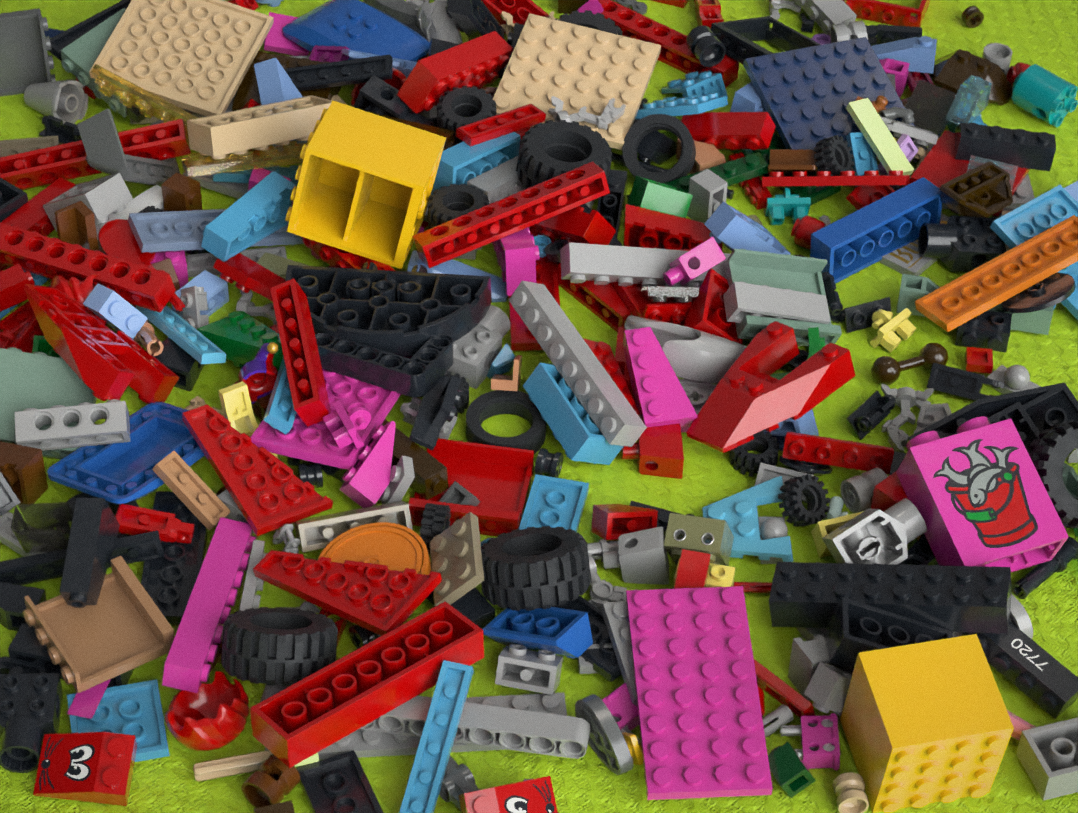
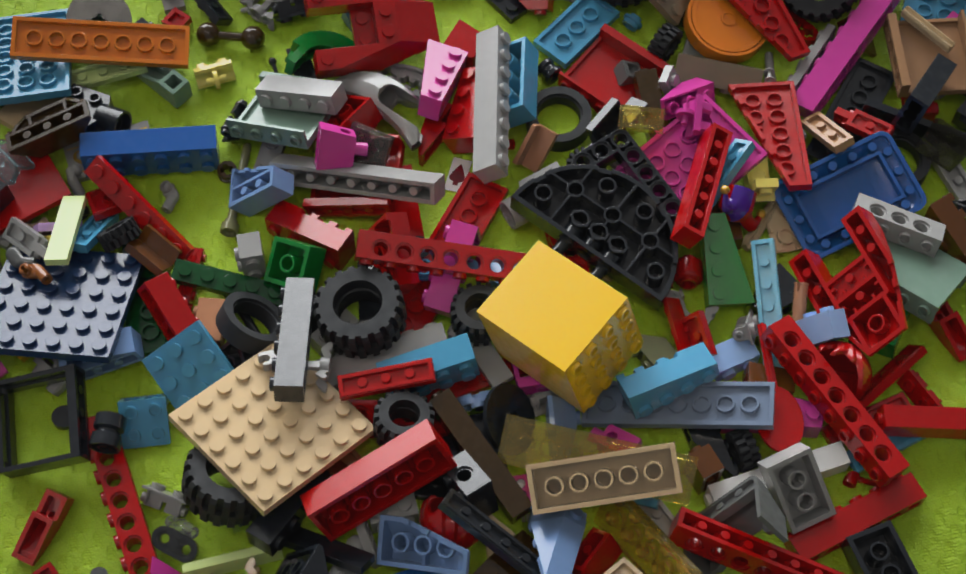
camera: 150 degrees left, 20 degrees up
(77, 226) = (820, 445): reddish brown panel -> none
(114, 644) = (927, 29): none -> tan axle
(403, 397) = (642, 119): none -> clear yellow brick
(502, 363) = (527, 169): dark azure slope -> none
(601, 113) = (294, 340): none -> brick
(786, 205) = (193, 232): teal hips -> none
(804, 228) = (194, 191): red head -> none
(860, 316) = (210, 98): black hinge -> none

